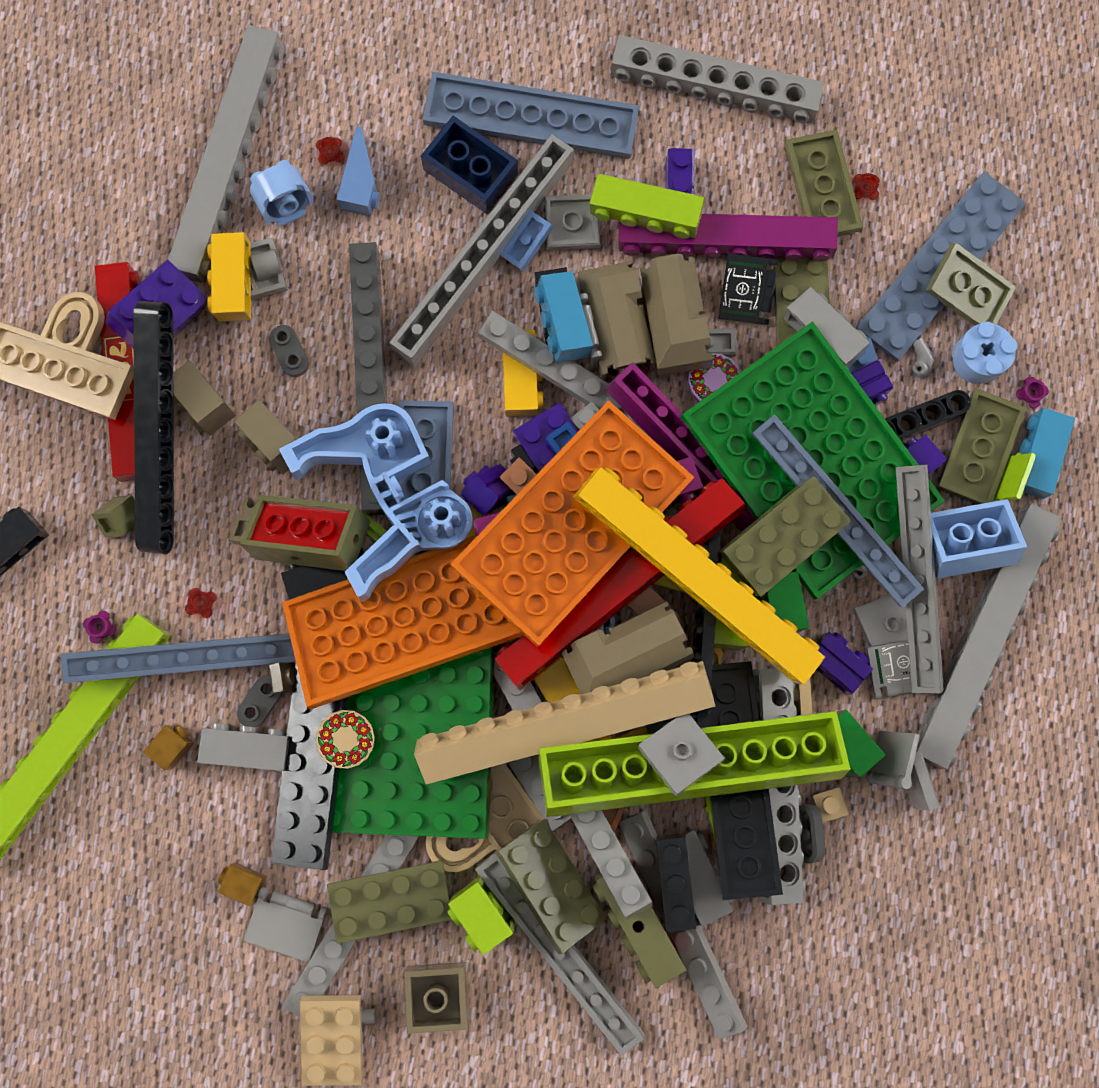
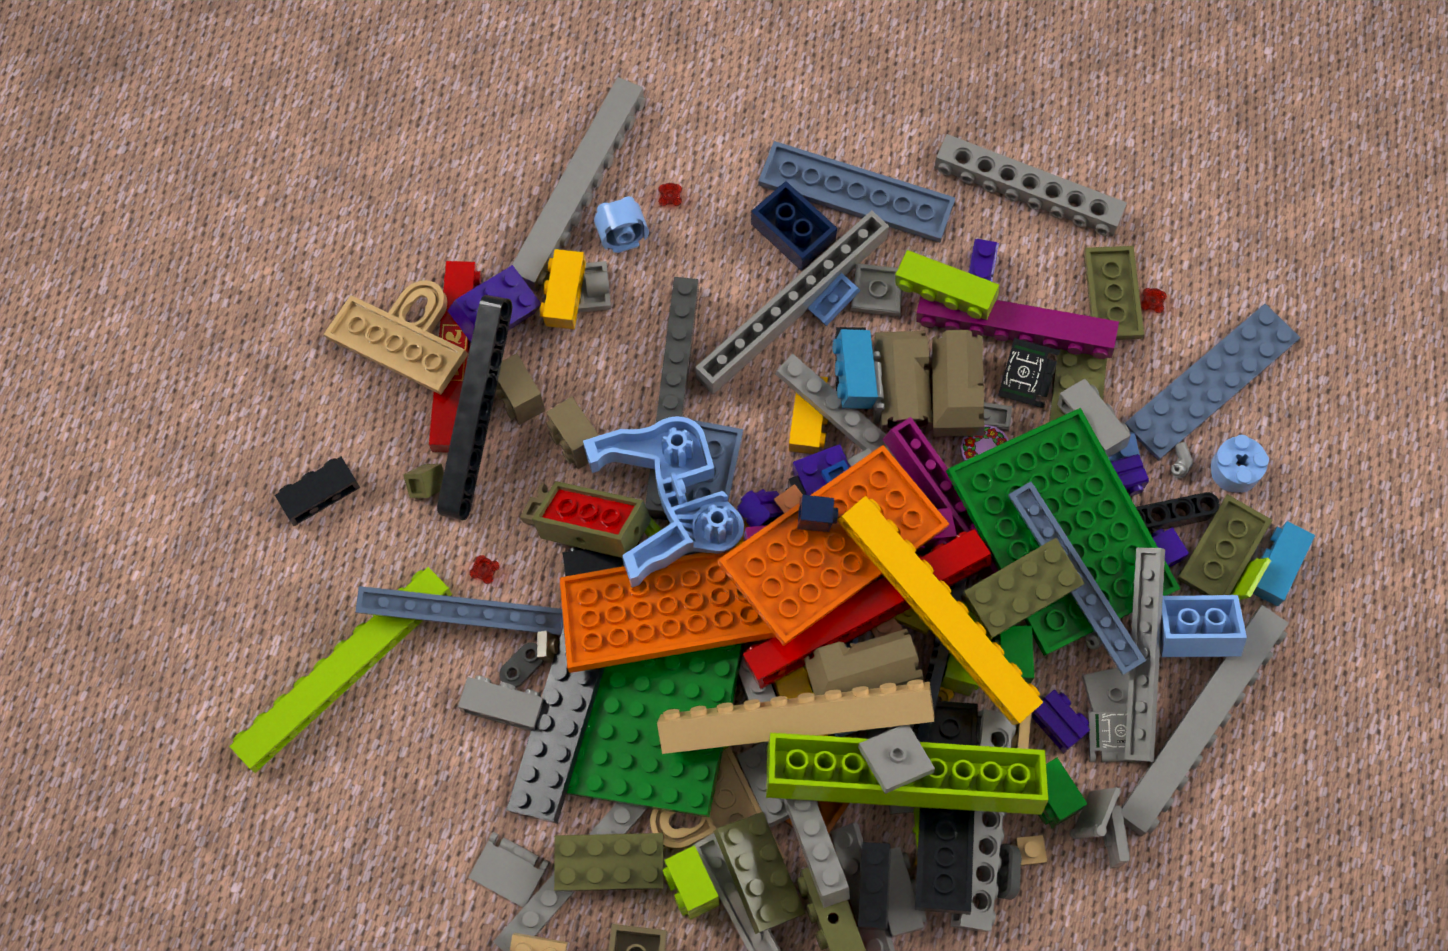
camera: 15 degrees right, 10 degrees down
(91, 624) = (383, 572): magenta plate -> none
(169, 746) = (434, 689): pearl gold brick -> none
(241, 883) = (476, 823): pearl gold brick -> none
(289, 349) = (603, 360): dark grey plate -> none
(344, 739) = (594, 706): tile -> none
(358, 186) = (690, 229): medium blue slope -> none
(549, 493) = (816, 513): none -> dark blue brick
(970, 287) = (1235, 403): plate -> none
(1039, 389) = (1287, 504): magenta plate -> none

